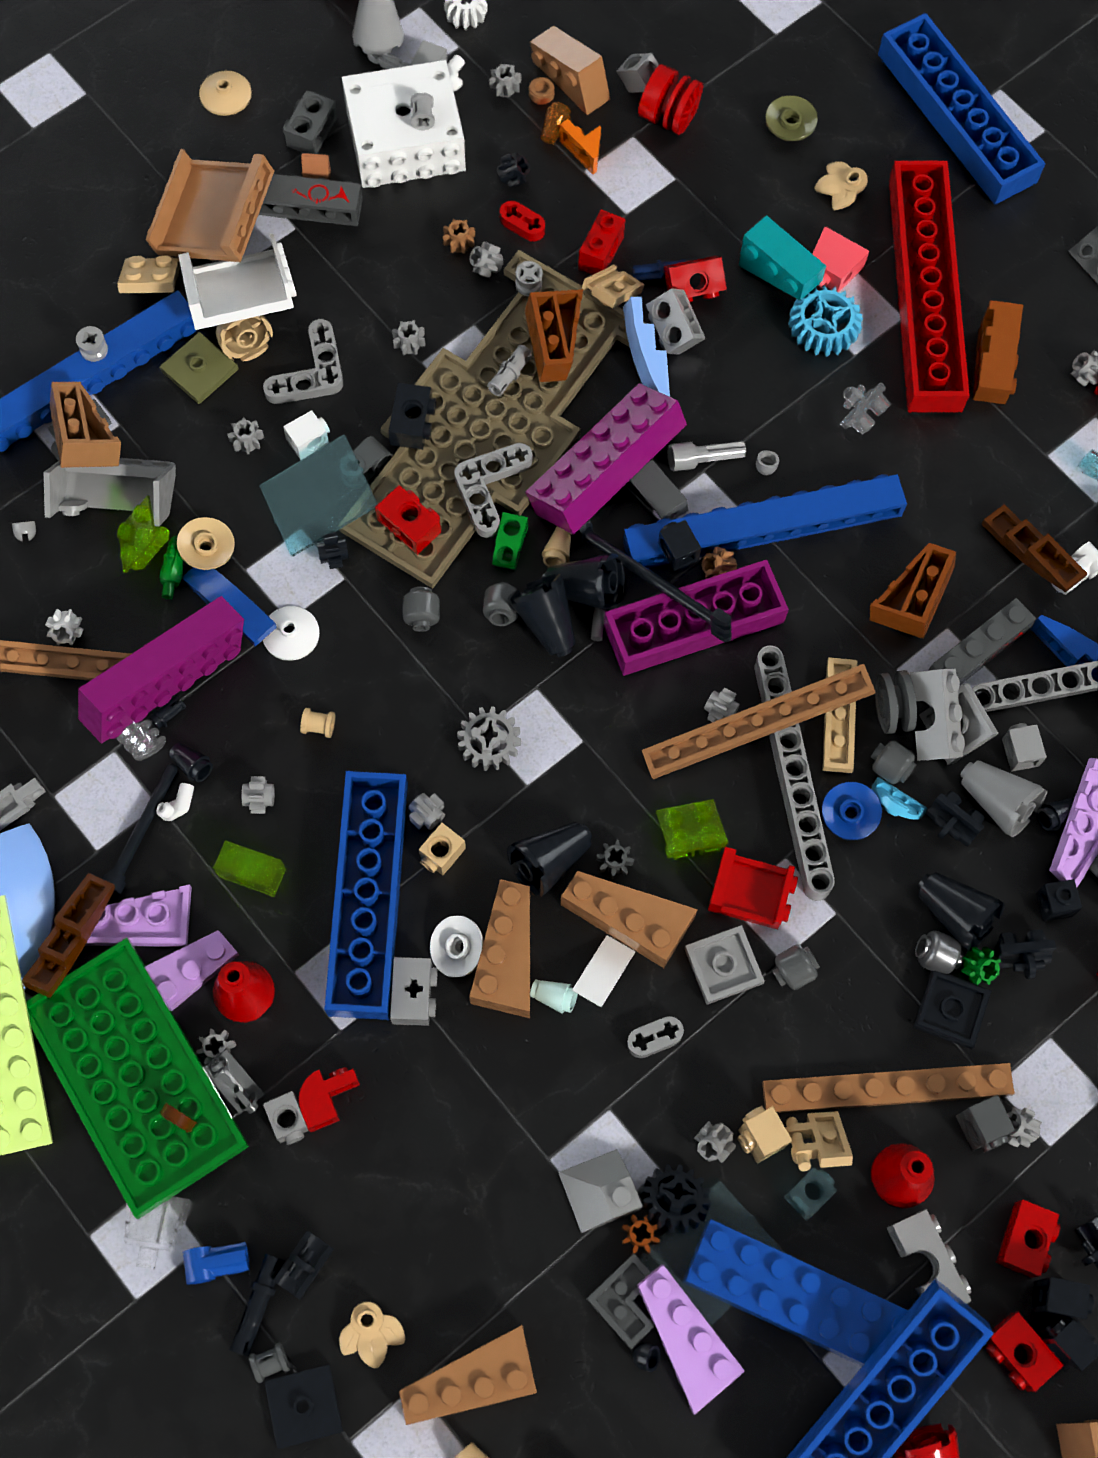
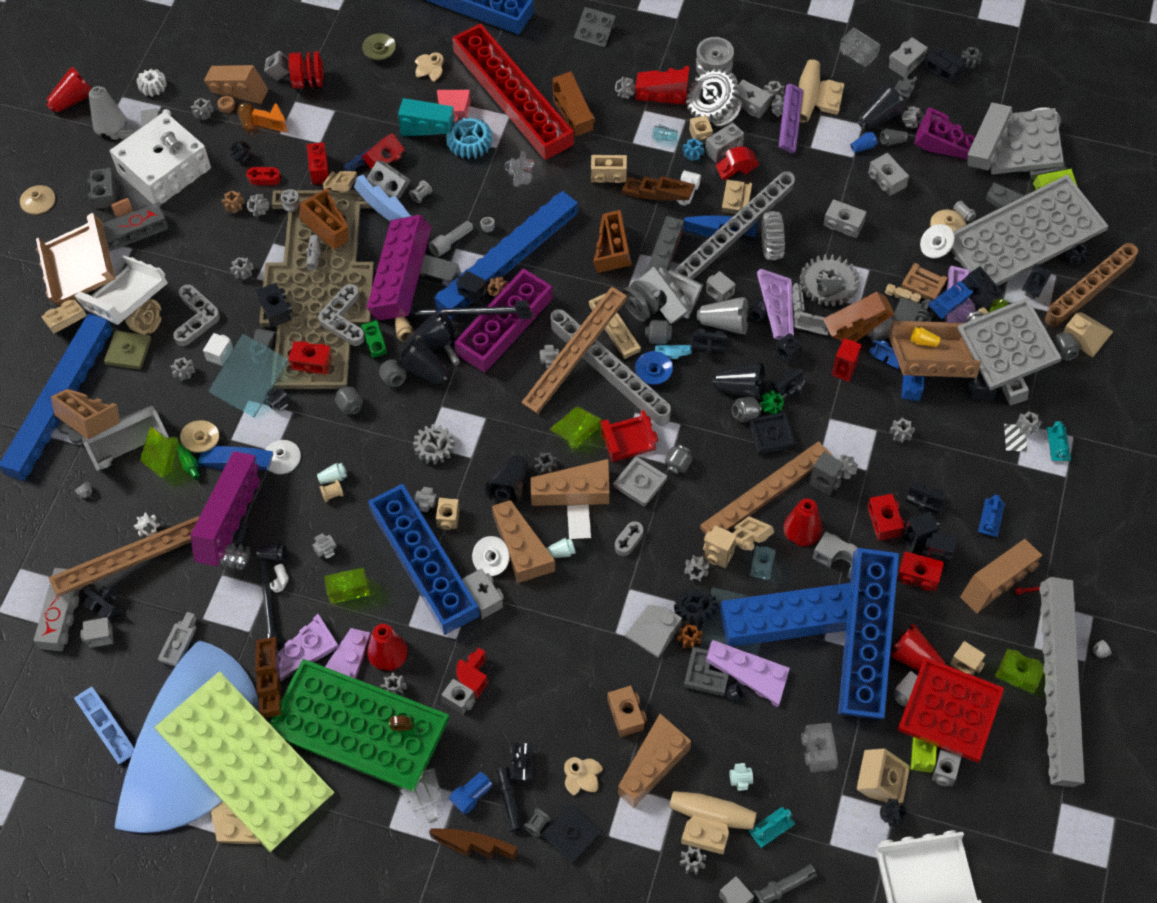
camera: 30 degrees left, 10 degrees down
(92, 351) = (59, 371): light grey wheel -> none
(163, 1326) = (466, 841): none -> reddish brown slope
(234, 1082) = (417, 694): dark grey hinge -> none
(336, 699) = (332, 473): none -> light aqua cone
(485, 1264) = (631, 722): none -> medium nougat brick
(709, 362) = (420, 191): none -> light grey bush
(984, 478) = (608, 168): none -> tan brick

